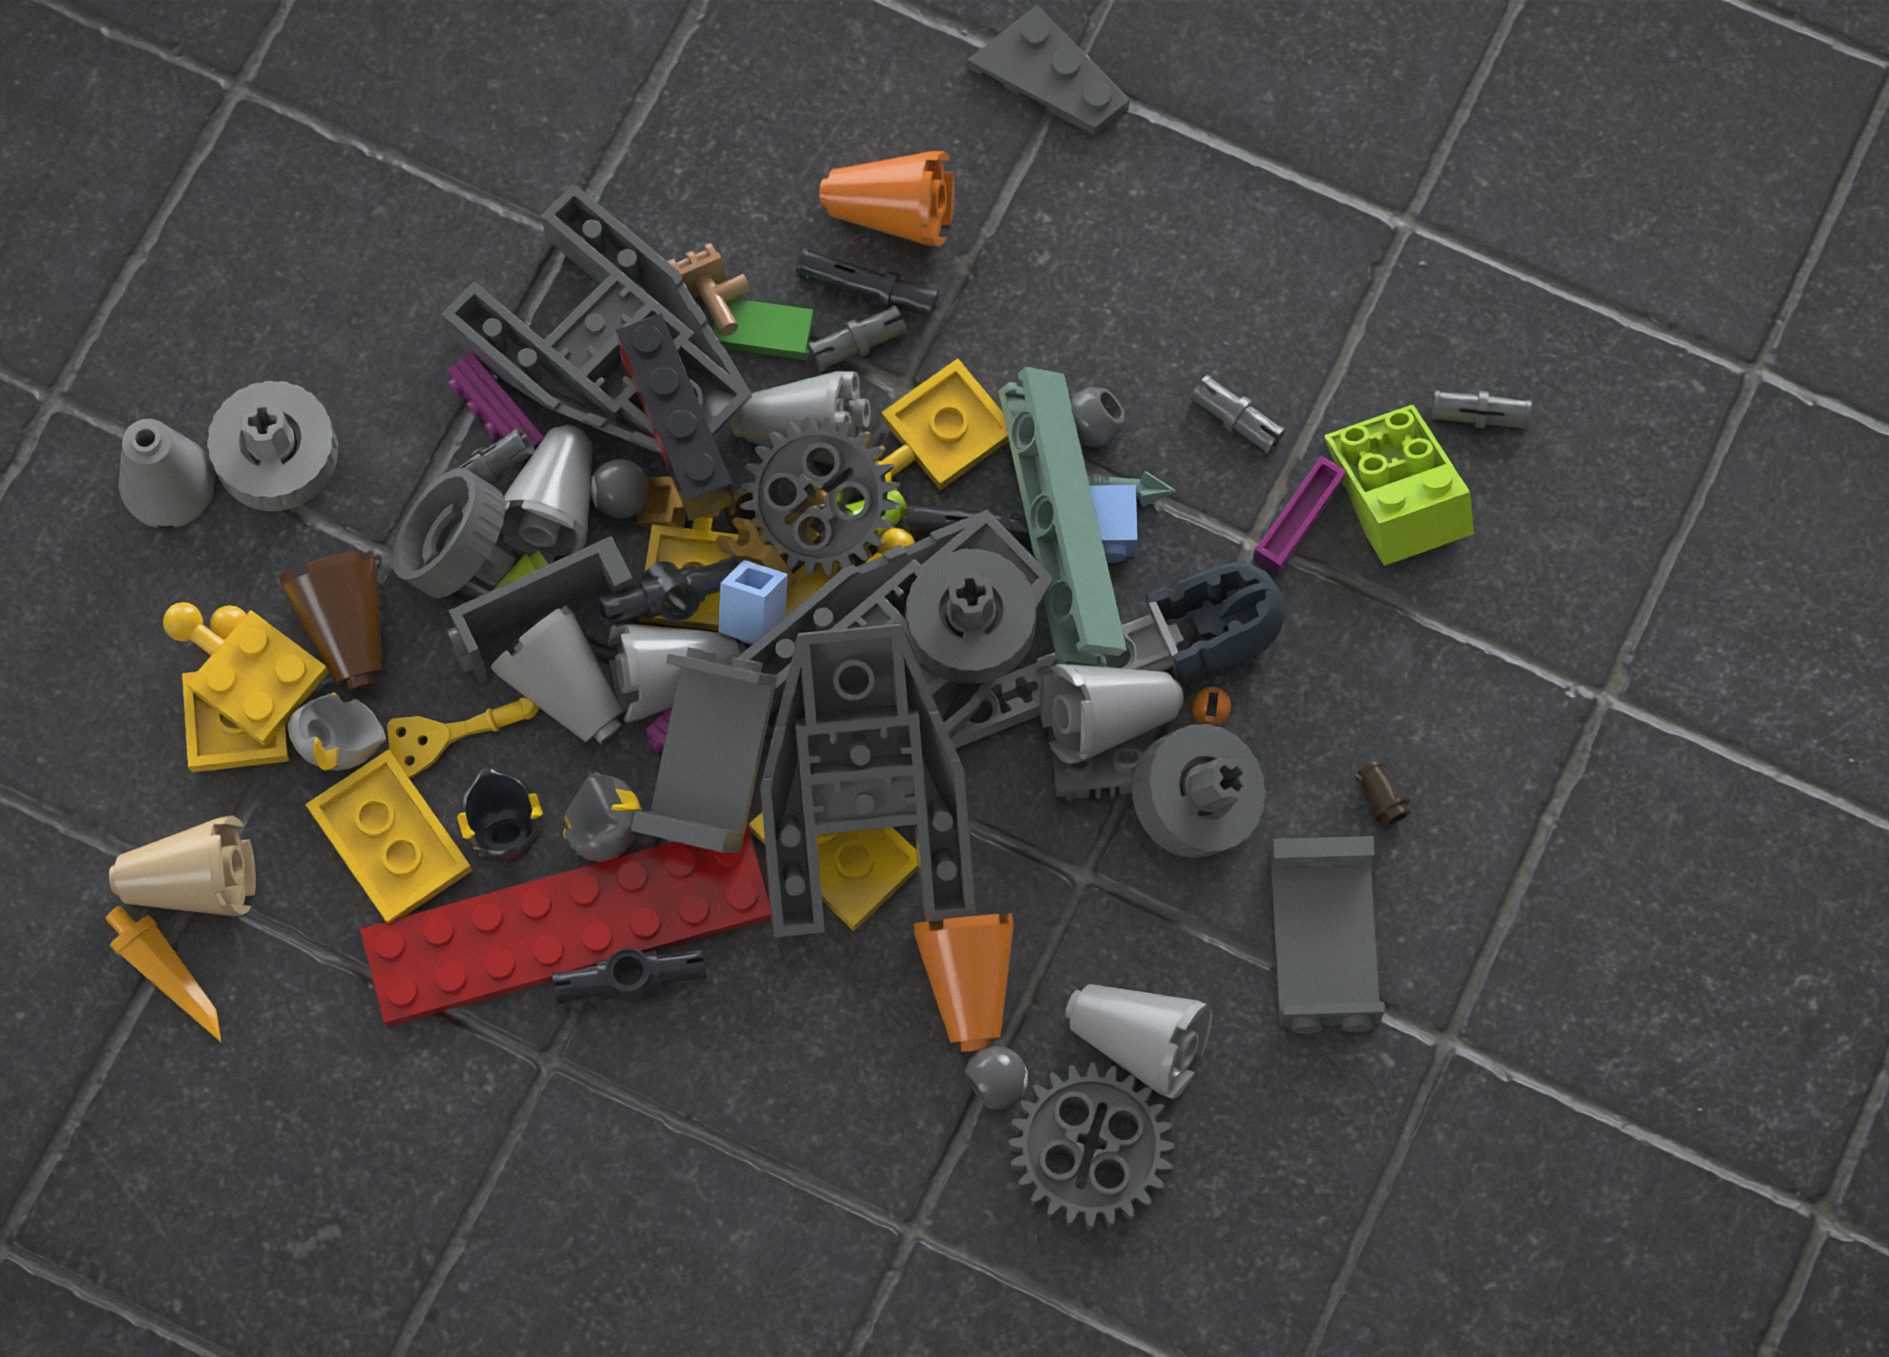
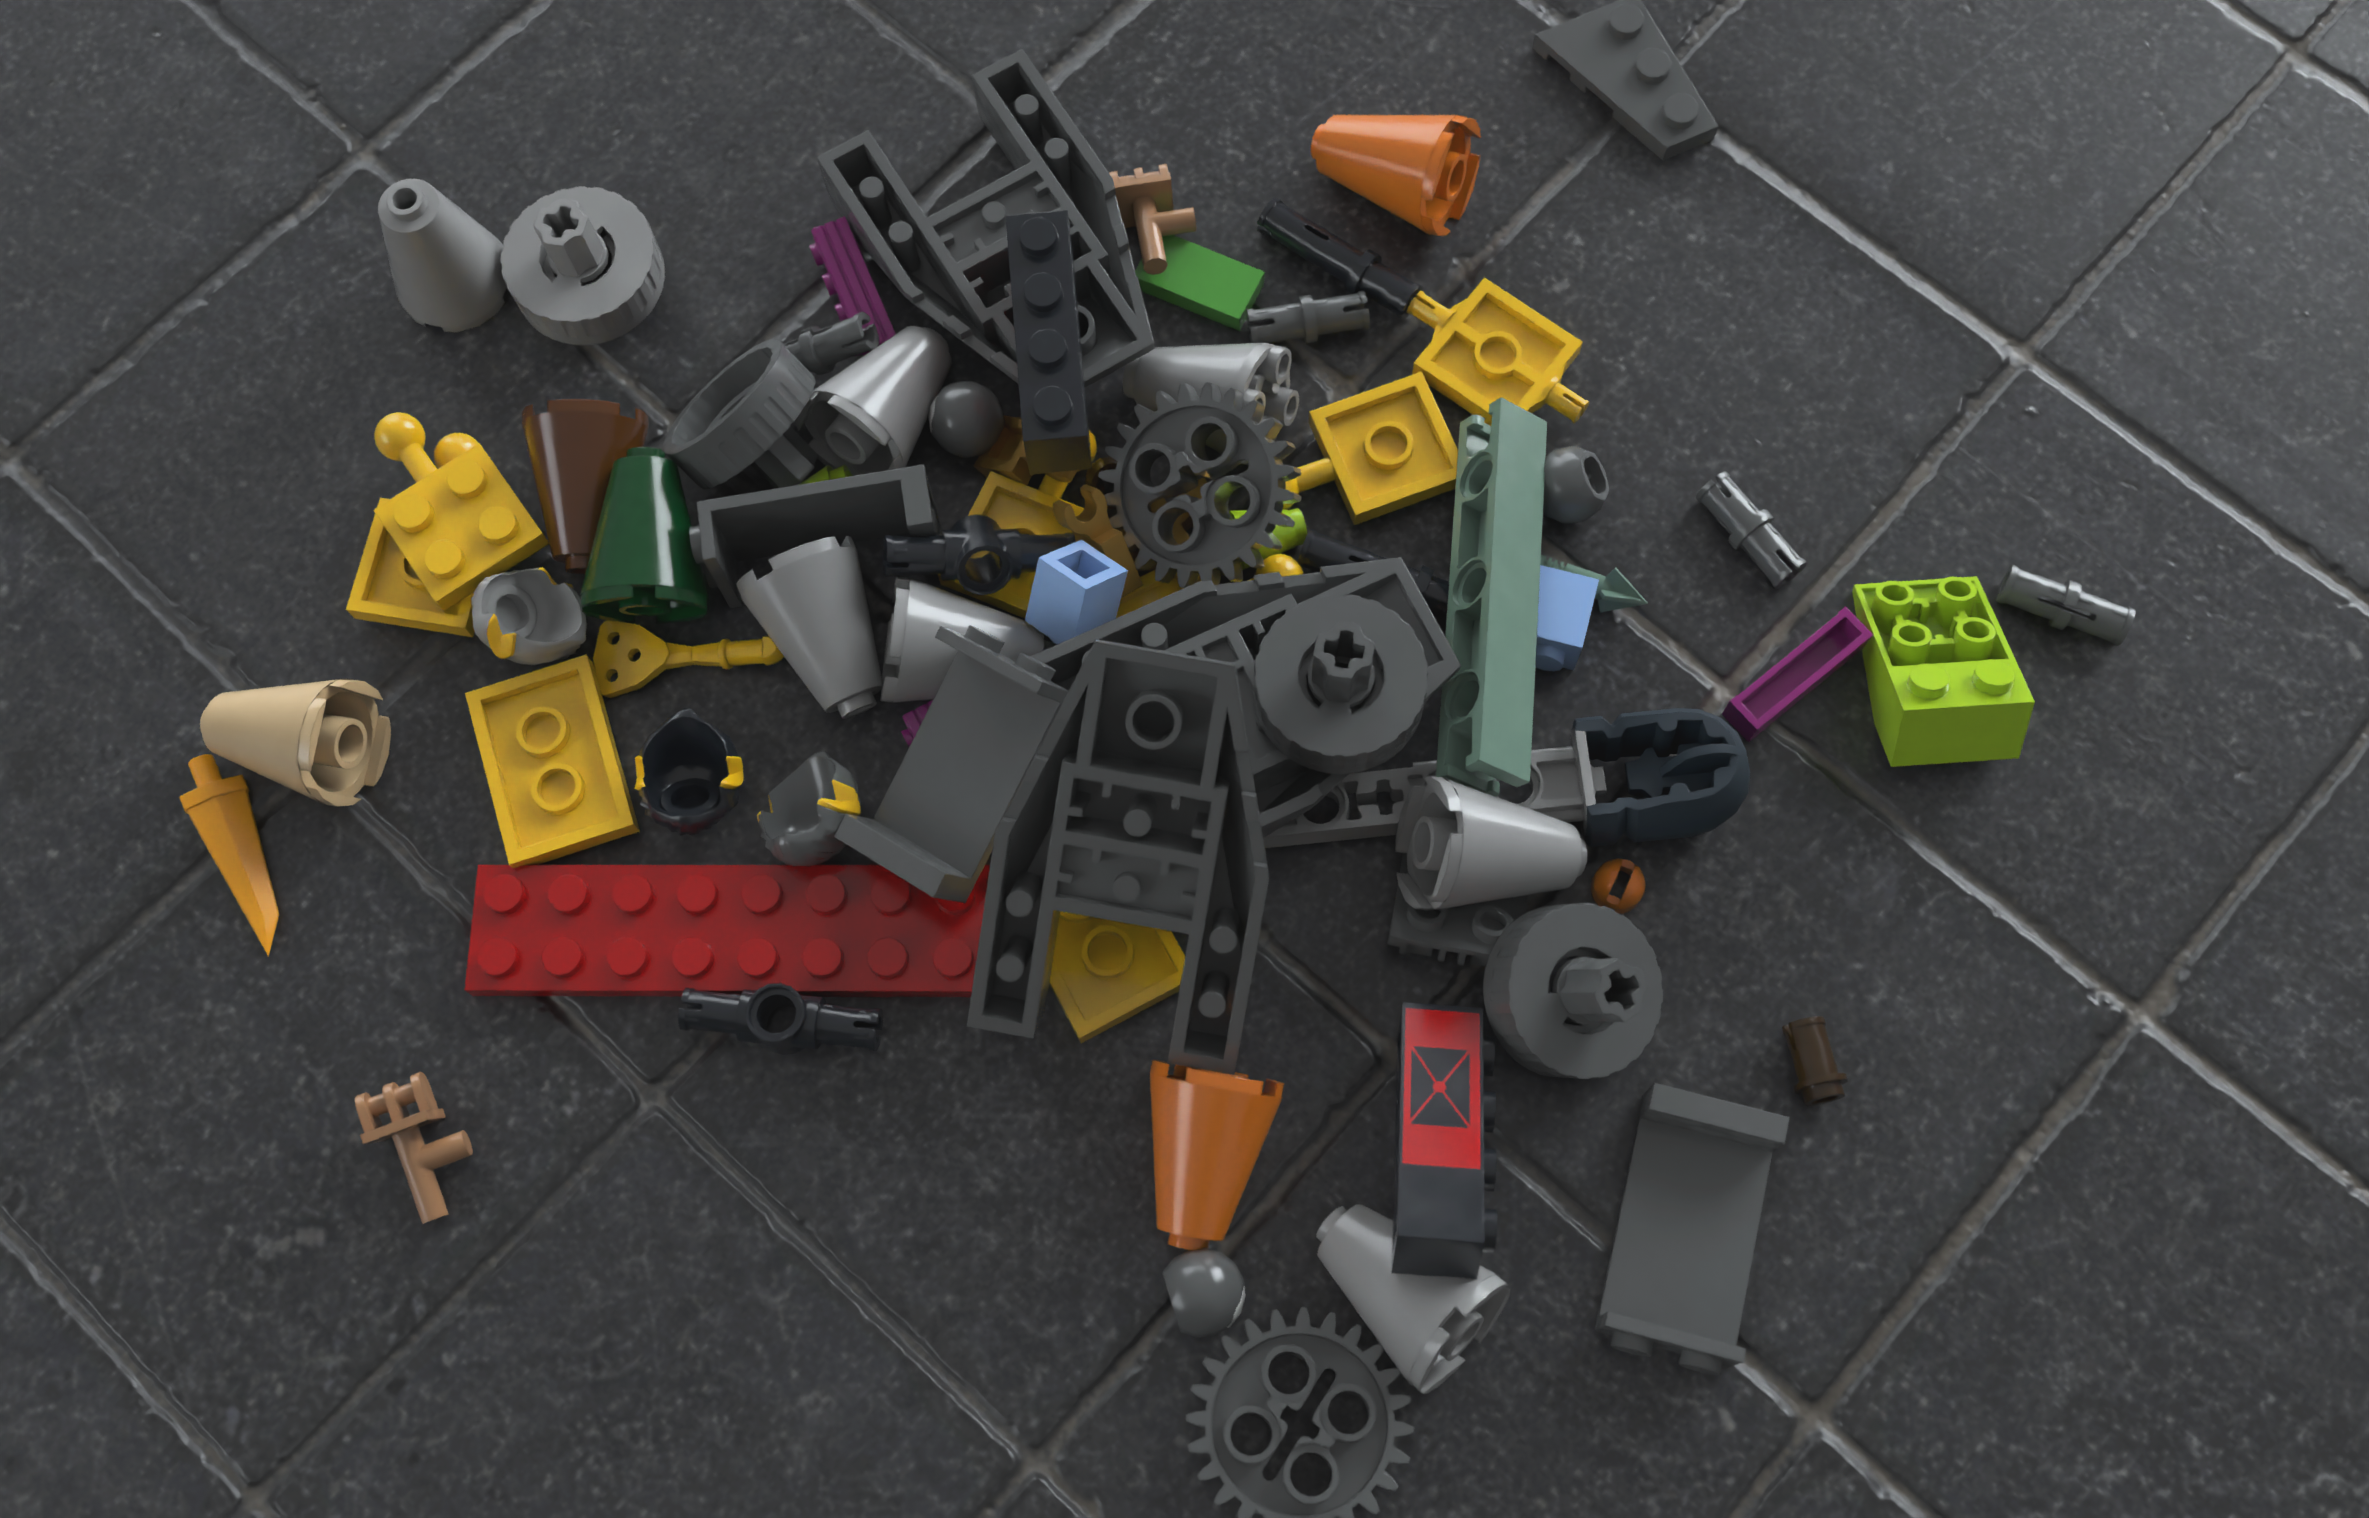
camera: 20 degrees right, 0 degrees up
(392, 1151) = (415, 1156): none -> medium nougat arm
(411, 654) = (643, 546): none -> dark green cone
(1010, 328) = (1496, 350): none -> yellow plate
(1134, 920) = (1440, 1142): none -> black brick

